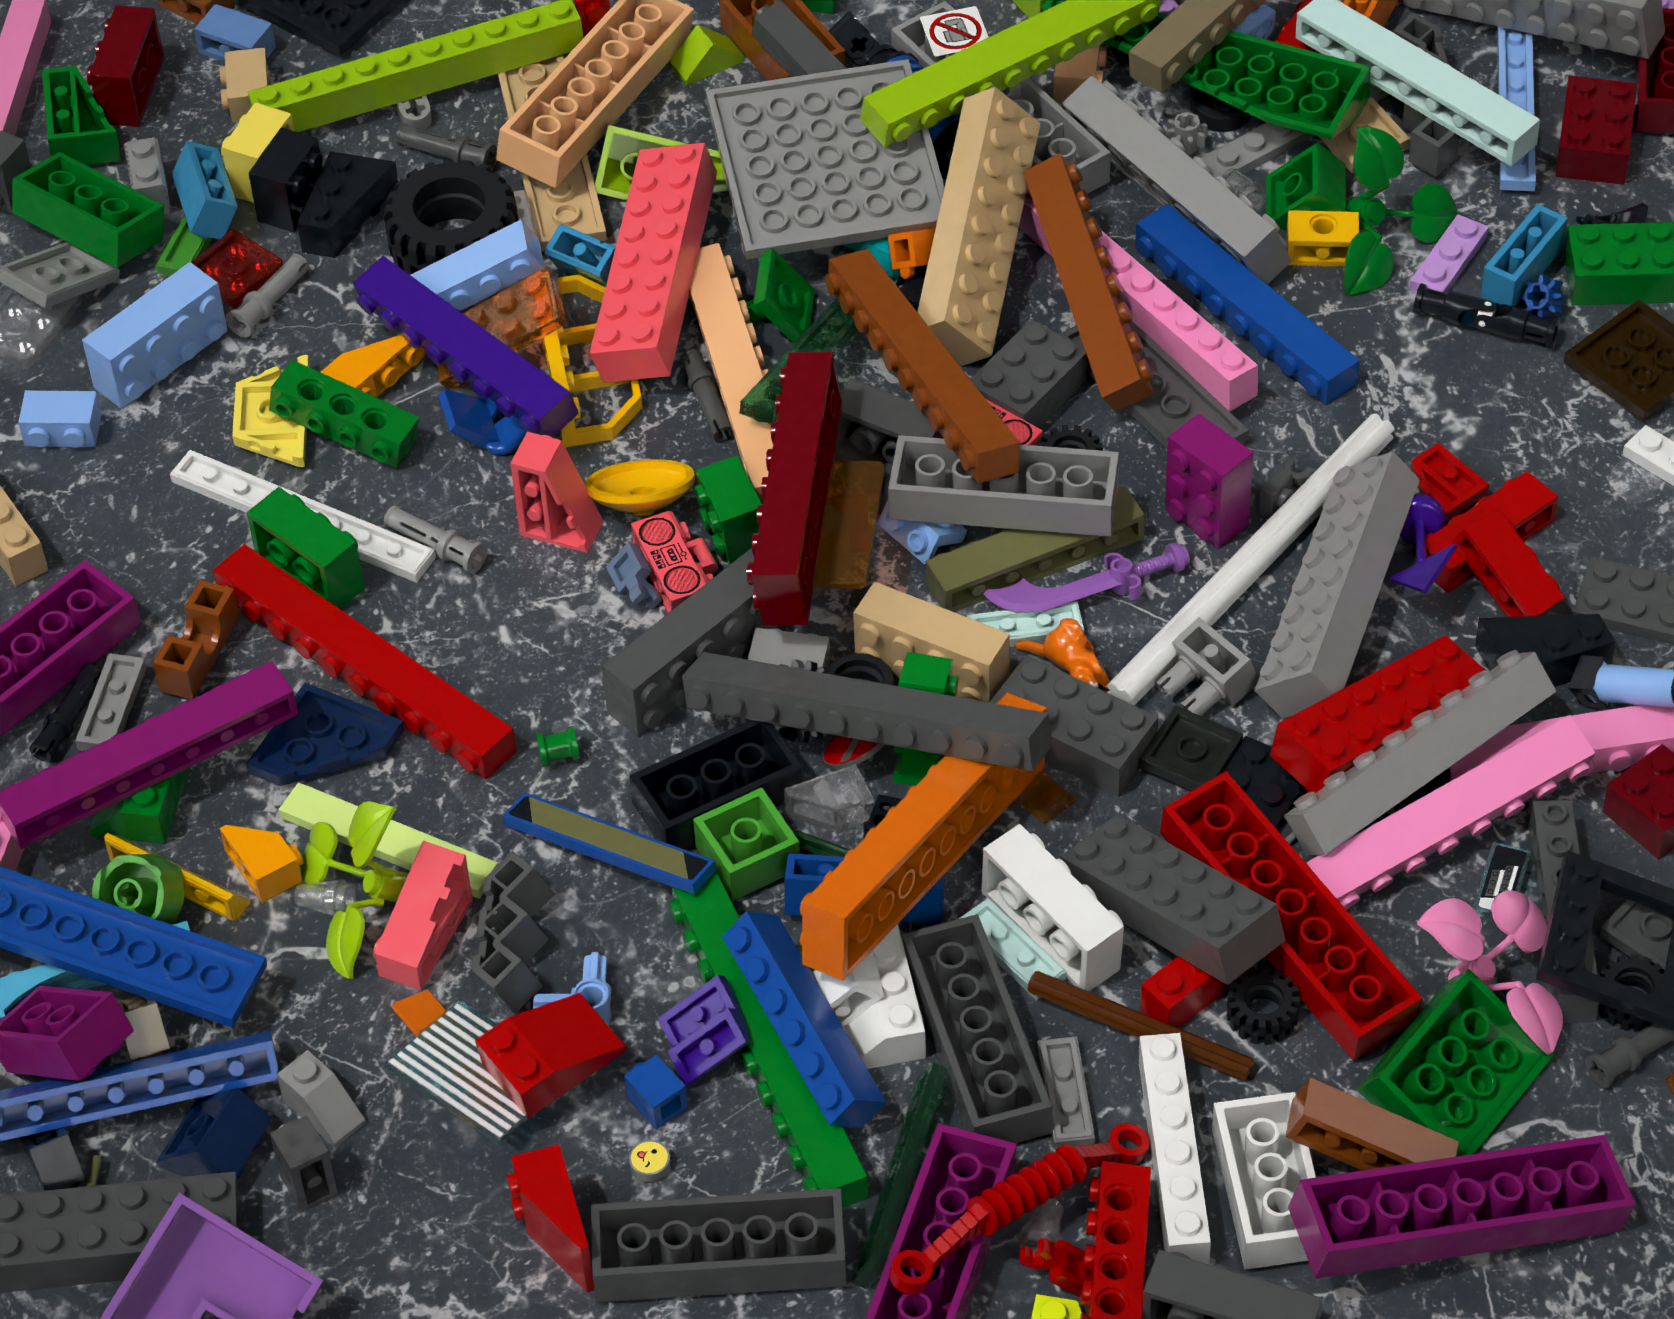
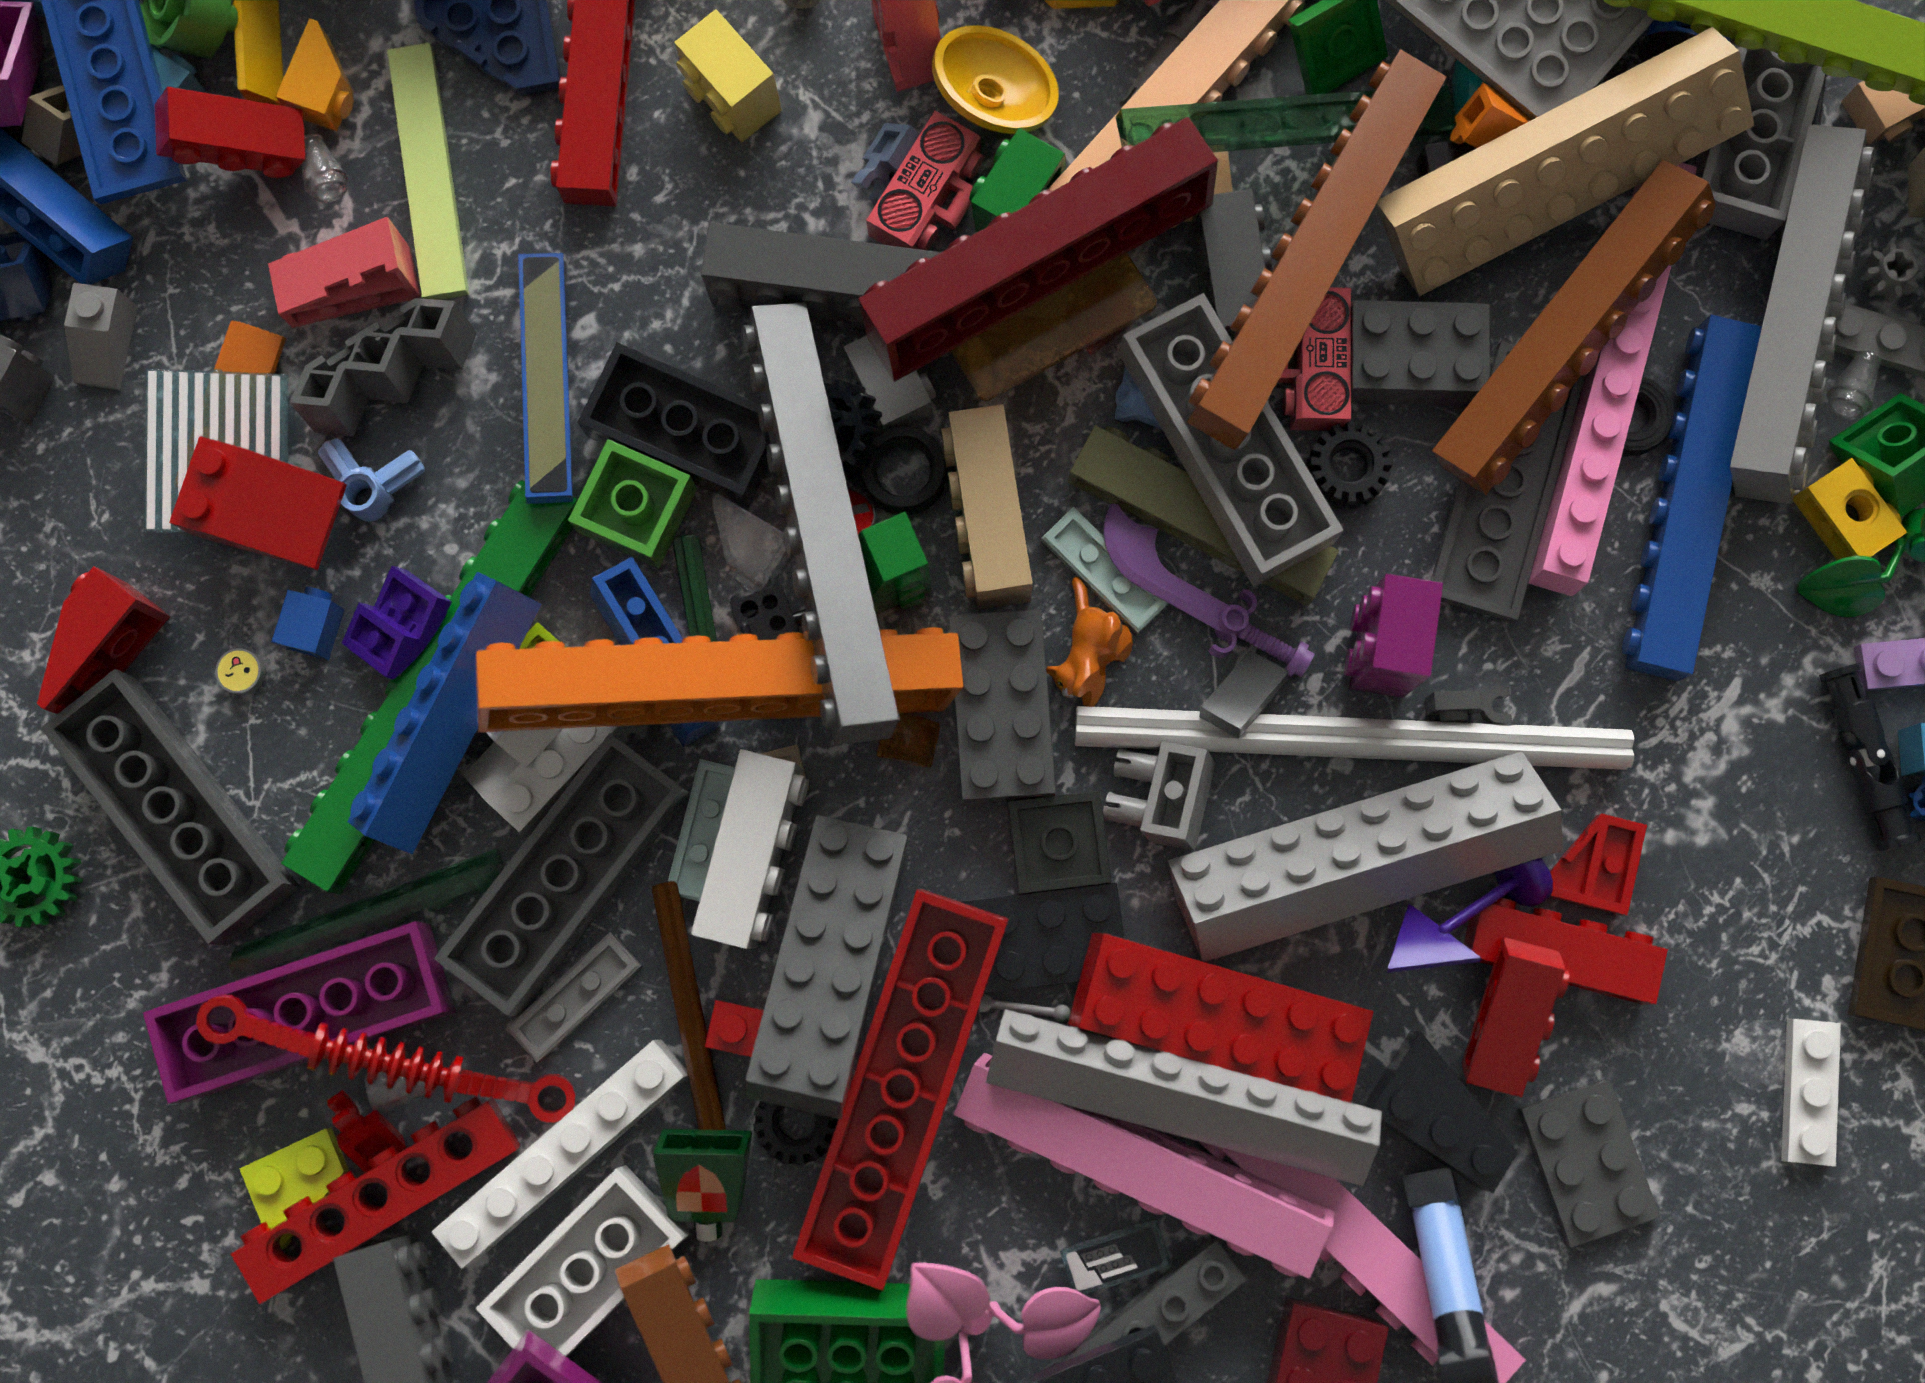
camera: 55 degrees right, 30 degrees up
(260, 914) = (229, 132): none -> red brick
(382, 883) = (358, 205): lime plant -> none
(498, 618) = (727, 77): none -> light yellow brick
(557, 746) = (634, 242): green bush -> none
(1176, 591) = (1243, 694): none -> dark grey tile
(1258, 1063) = (703, 1176): none -> dark green torso

